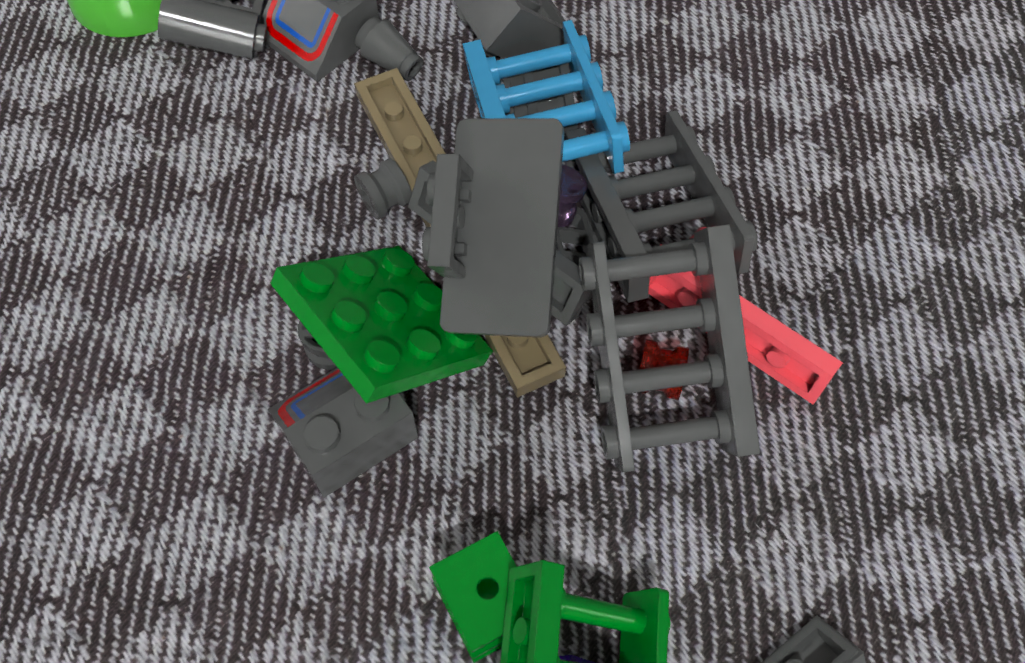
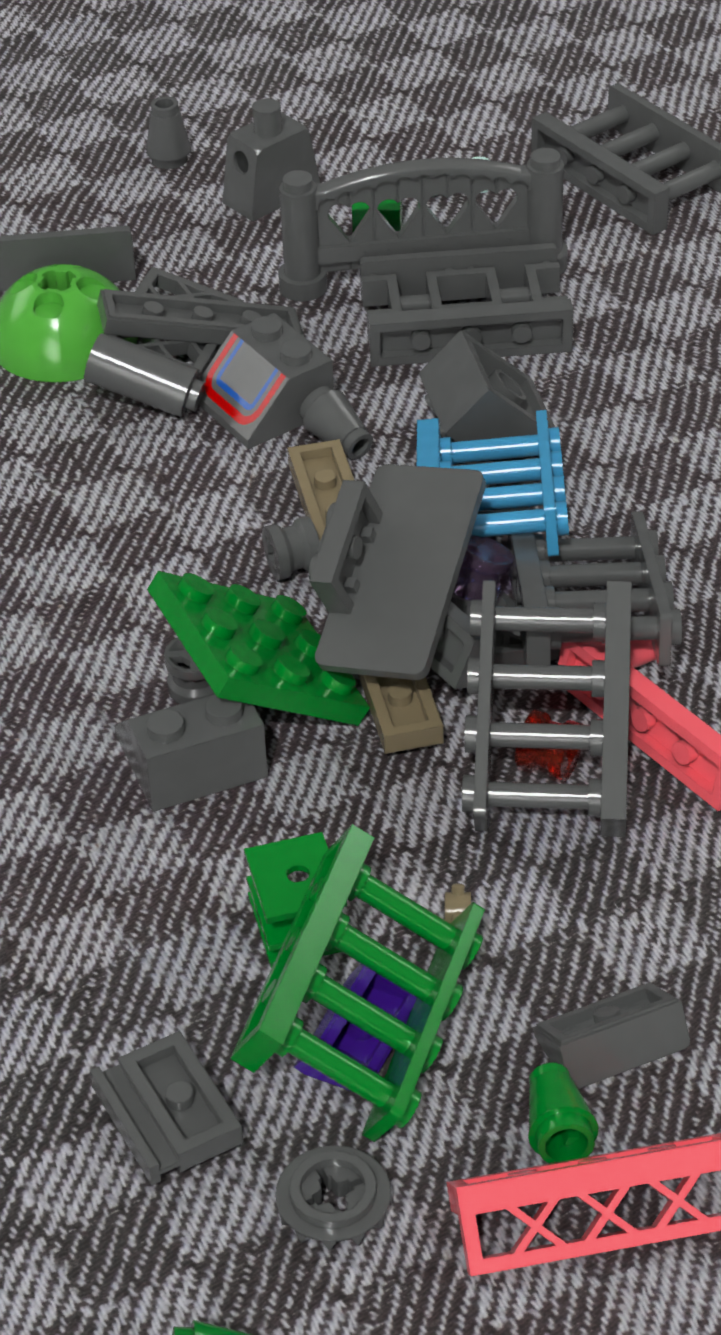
camera: 15 degrees right, 20 degrees down
(630, 571) = (456, 902): none -> dark tan piece

